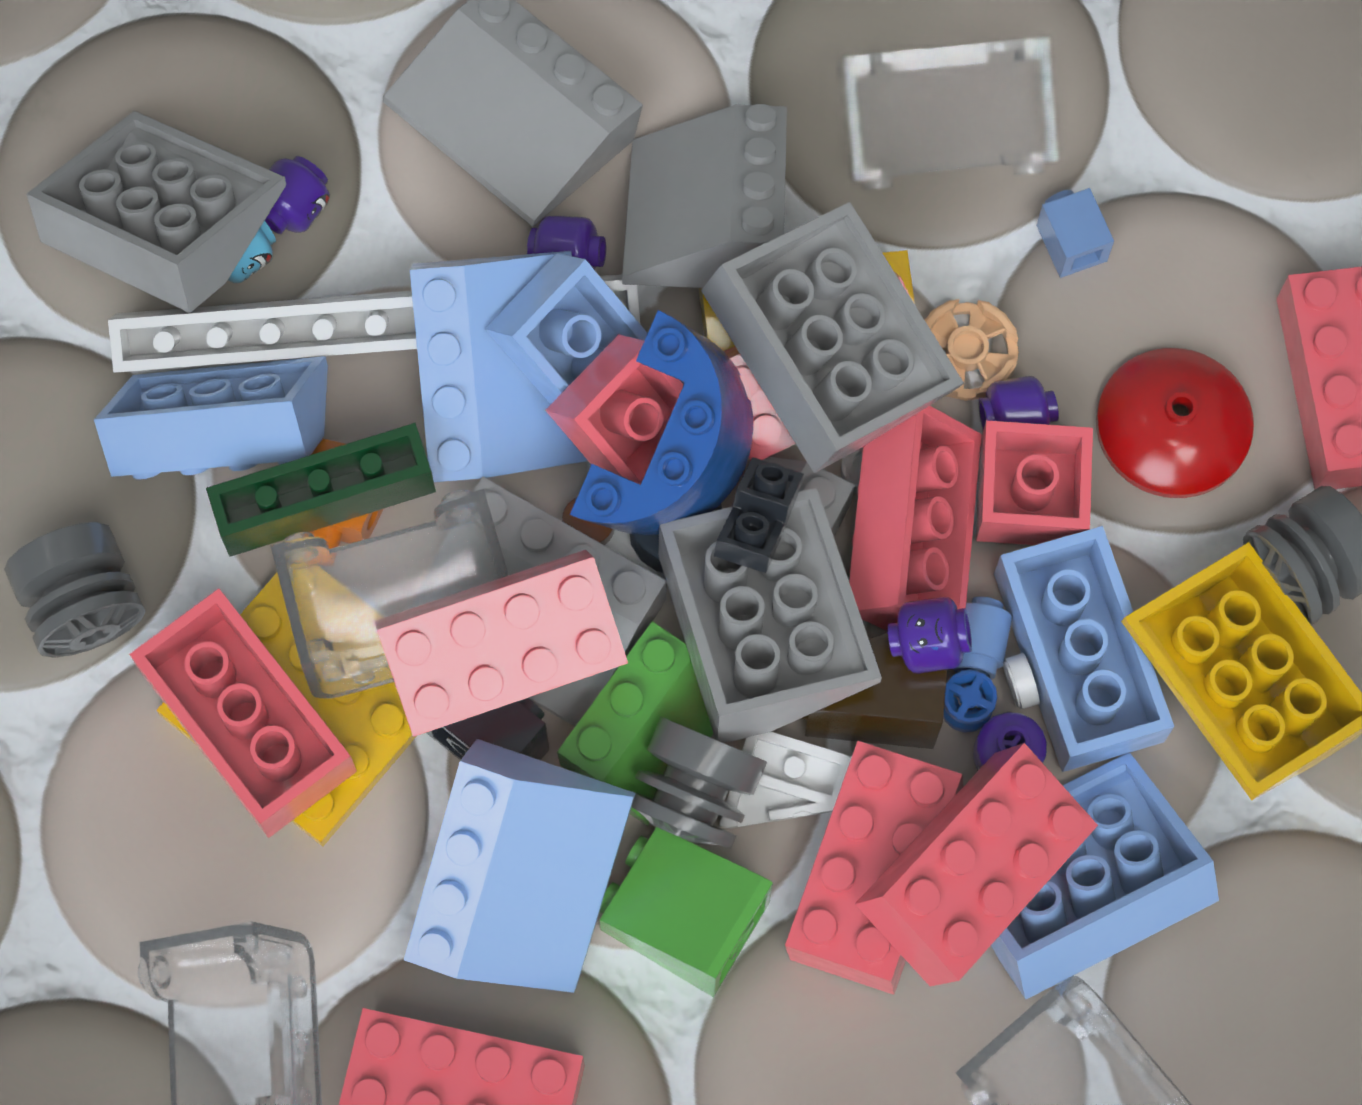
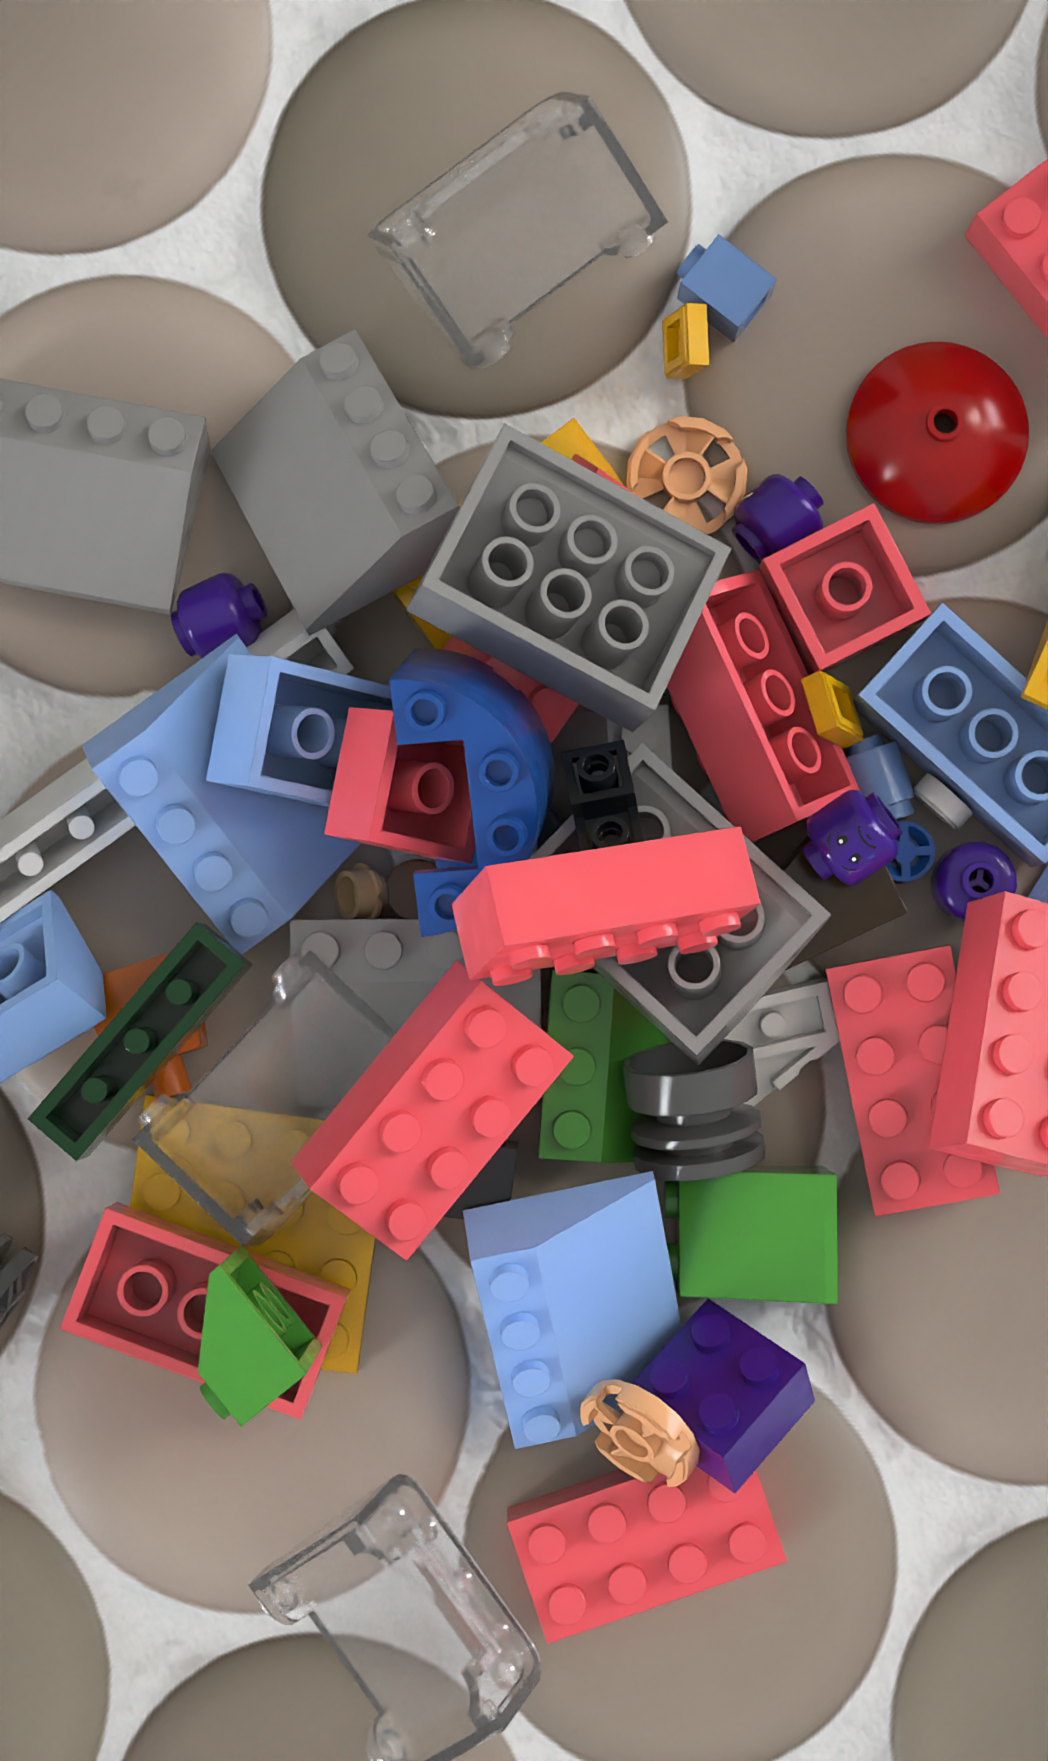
camera: 30 degrees left, 15 degrees up
(262, 716) = (249, 1340): none -> bright green slope
(500, 996) = (644, 1437): none -> light nougat piece
(548, 494) = (360, 892): none -> tan plate
(585, 1007) = (729, 1390): none -> dark purple brick
(716, 551) = (604, 905): none -> coral brick
(975, 560) = (832, 709): none -> yellow tile
(1022, 251) = (685, 341): none -> yellow tile

